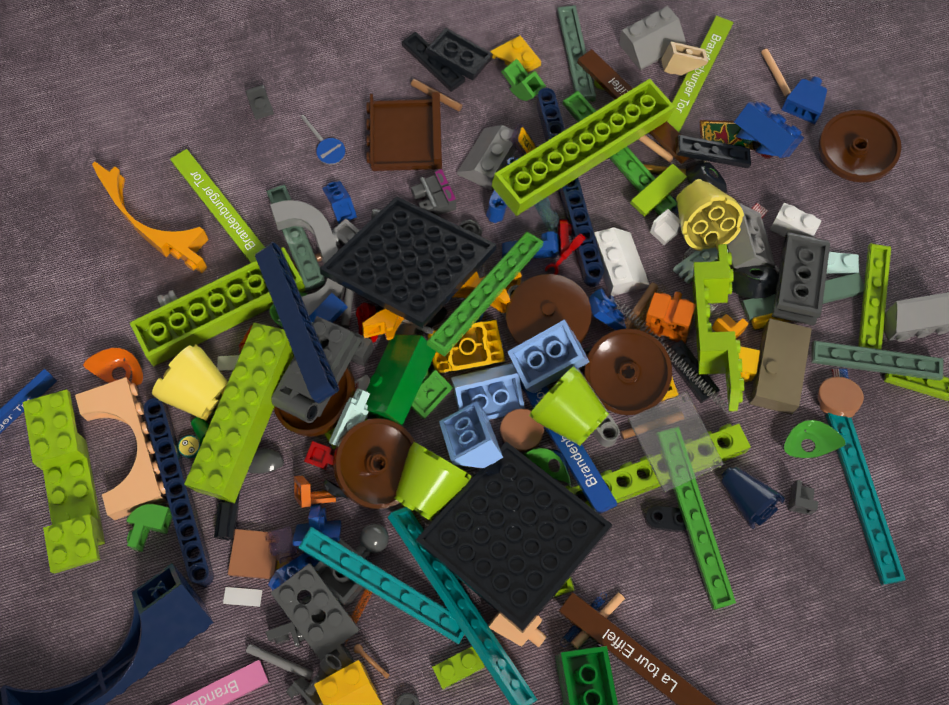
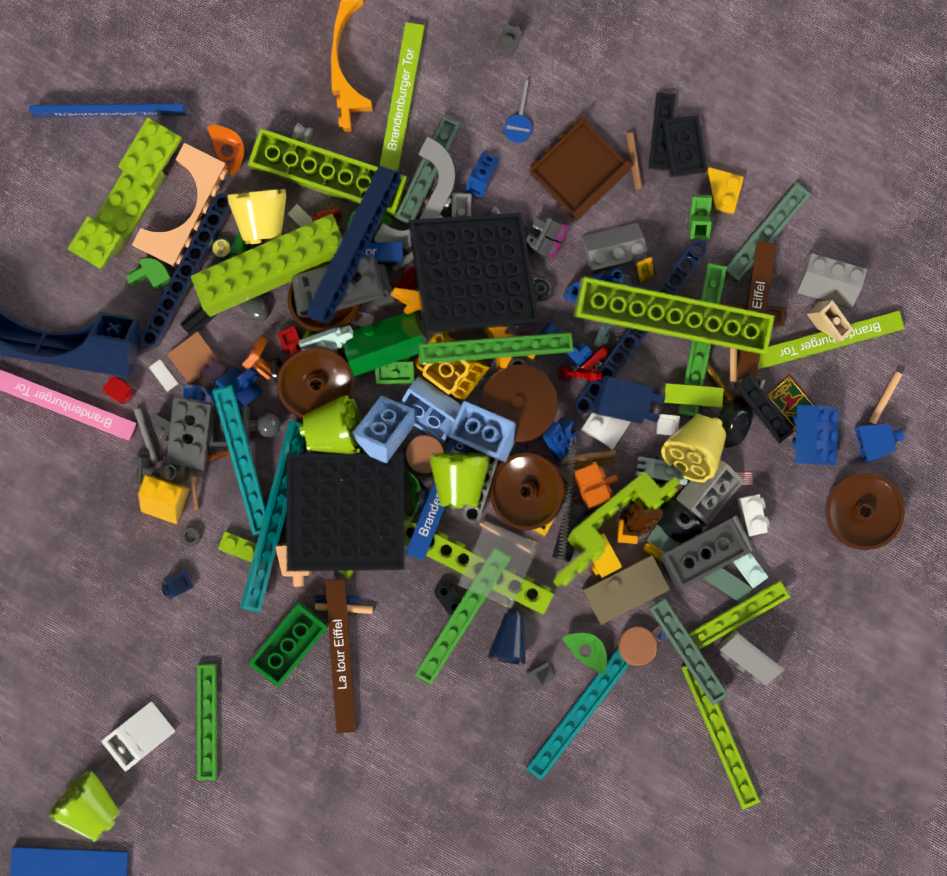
camera: 50 degrees right, 20 degrees up
(215, 647) = (118, 390): none -> red brick
(620, 233) = (626, 400): none -> dark blue tile
(729, 301) = (641, 520): none -> reddish brown bracket

